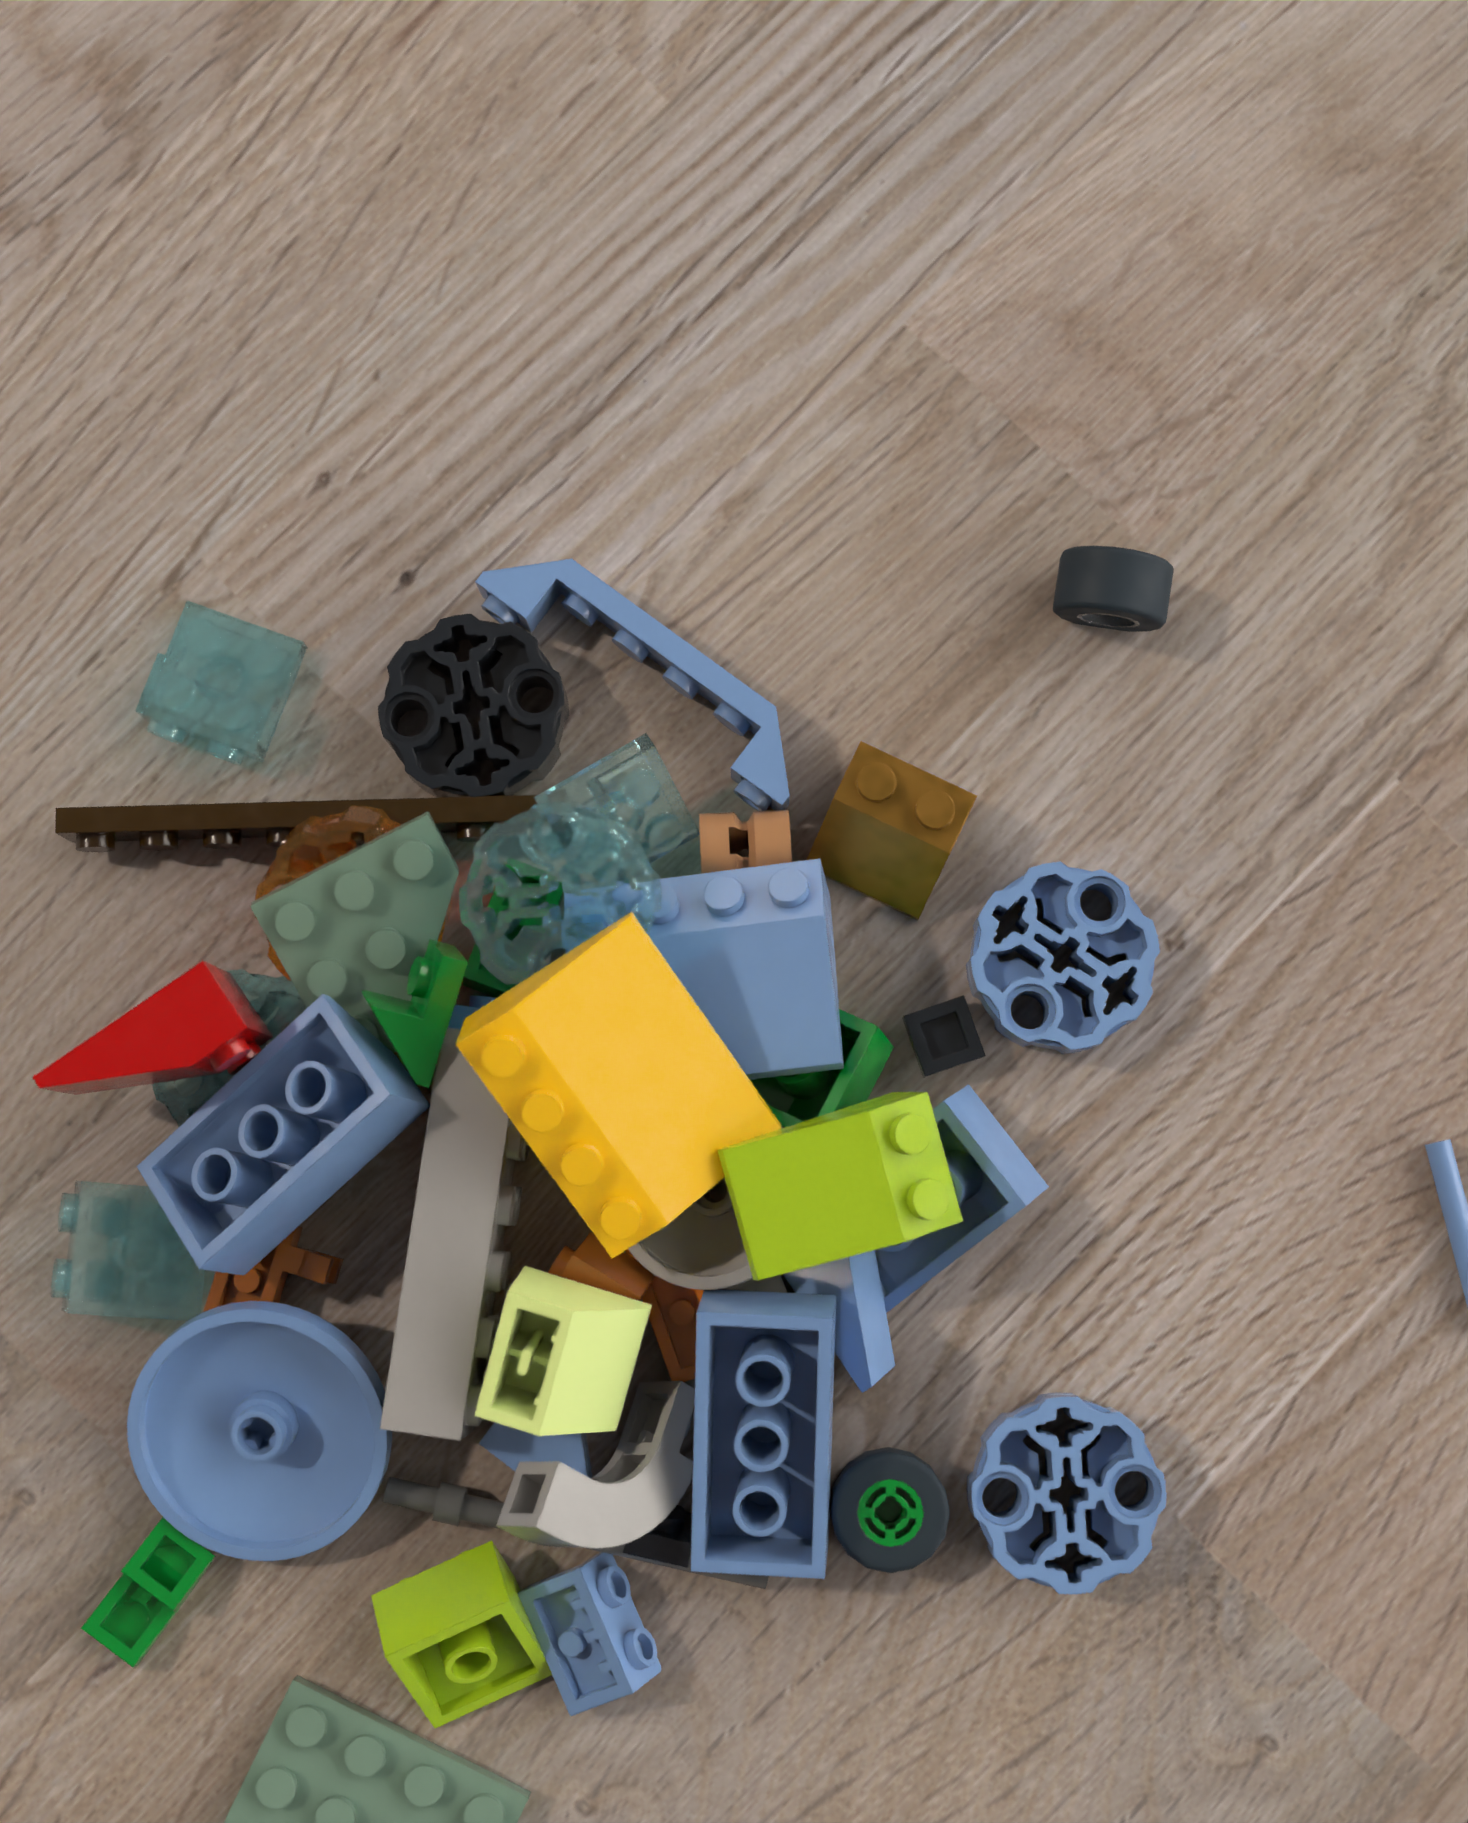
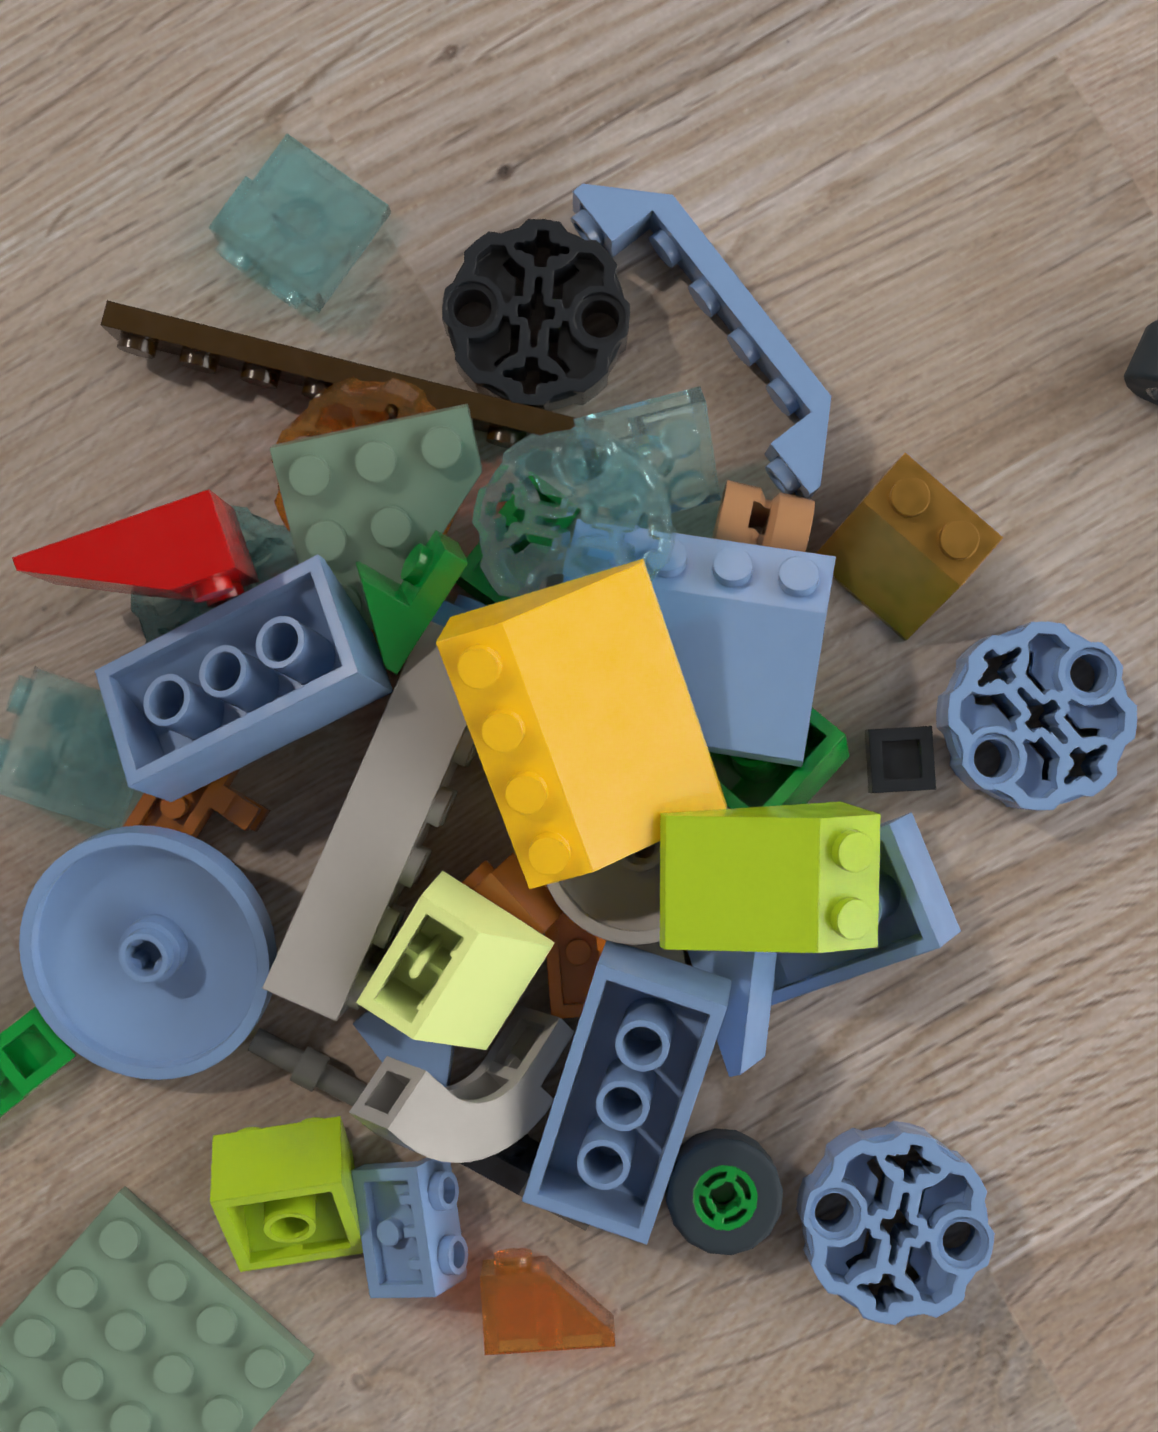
camera: 10 degrees right, 5 degrees up
(737, 1677) = (538, 1307): none -> clear orange slope

